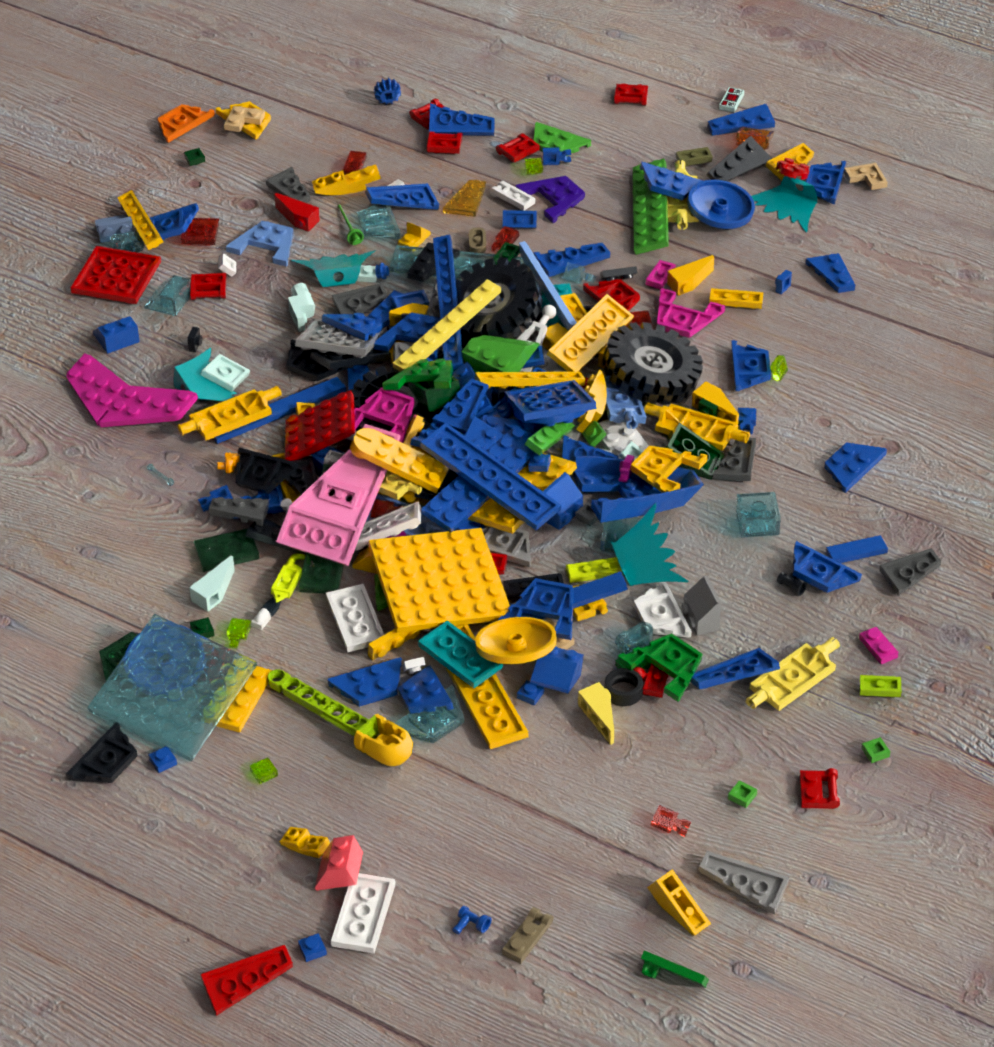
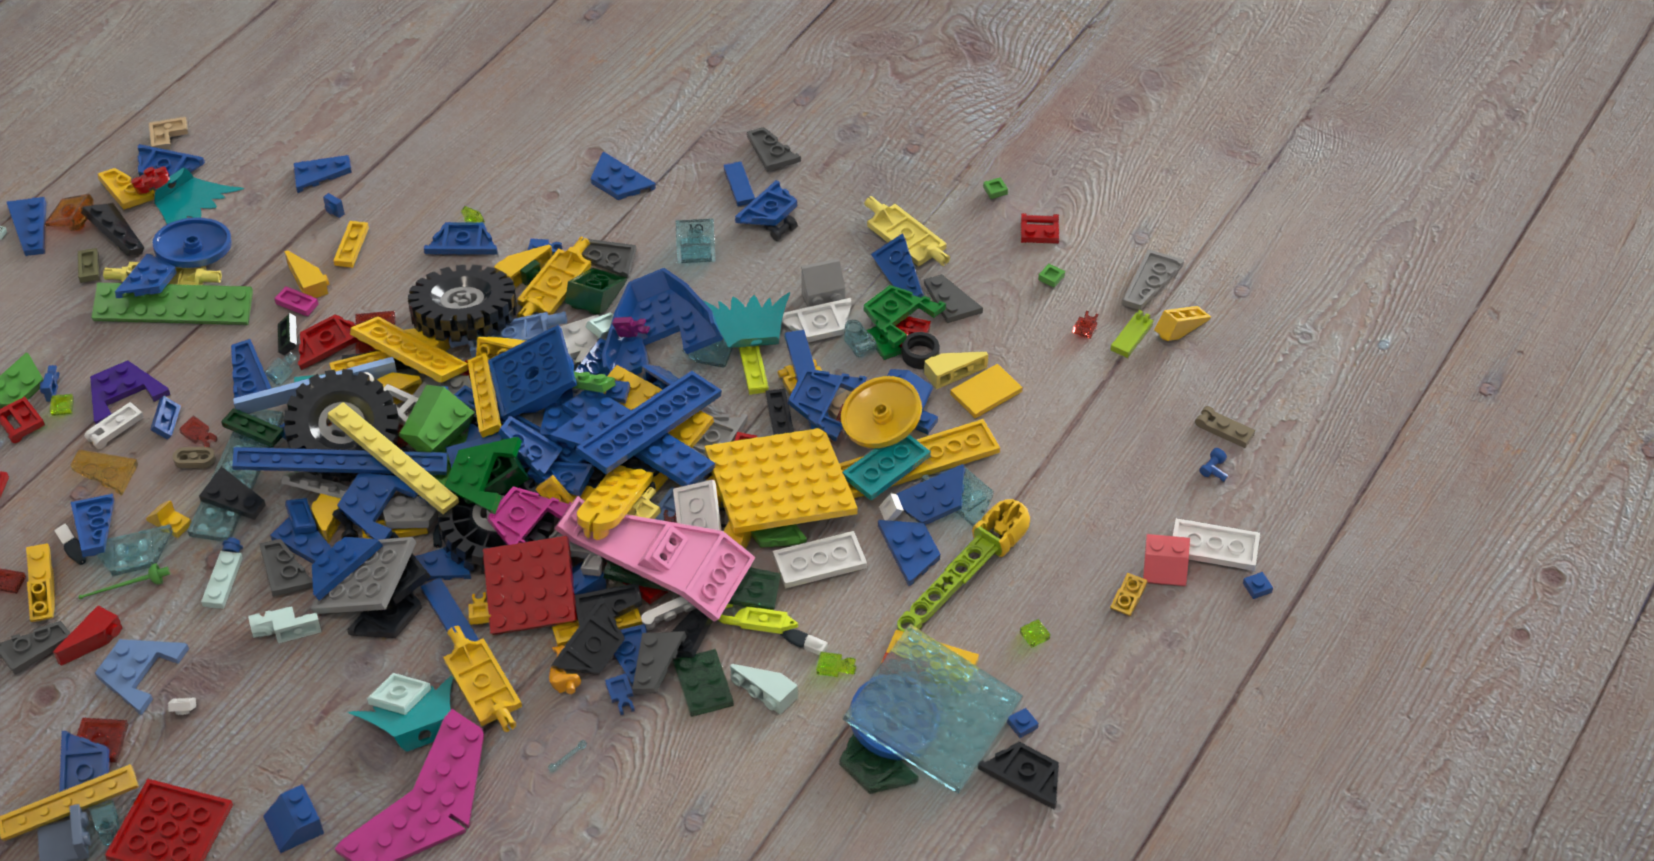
camera: 90 degrees left, 5 degrees up
(170, 296) = (229, 765): clear light blue slope -> none
(194, 339) = (326, 731): black plate -> none
(202, 627) = (828, 698): dark green plate -> none
(213, 281) = (210, 724): red plate -> none
(239, 979) = (1303, 635): red wing -> none
(328, 266) = (210, 590): teal piece -> none
(389, 641) = (865, 535): yellow plate -> none
(573, 740) = (986, 390): none -> yellow tile
(586, 514) = (677, 367): dark grey plate -> none
(654, 964) = (1249, 339): green hinge -> none
(658, 463) = (628, 301): yellow wing -> none
(659, 861) = (1132, 334): none -> lime hinge
(683, 319) = (374, 291): dark pink wing -> none
(700, 714) = (957, 302): none -> dark grey wing
(878, 645) = (864, 179): dark pink plate -> none
(880, 686) = (918, 179): lime plate -> none

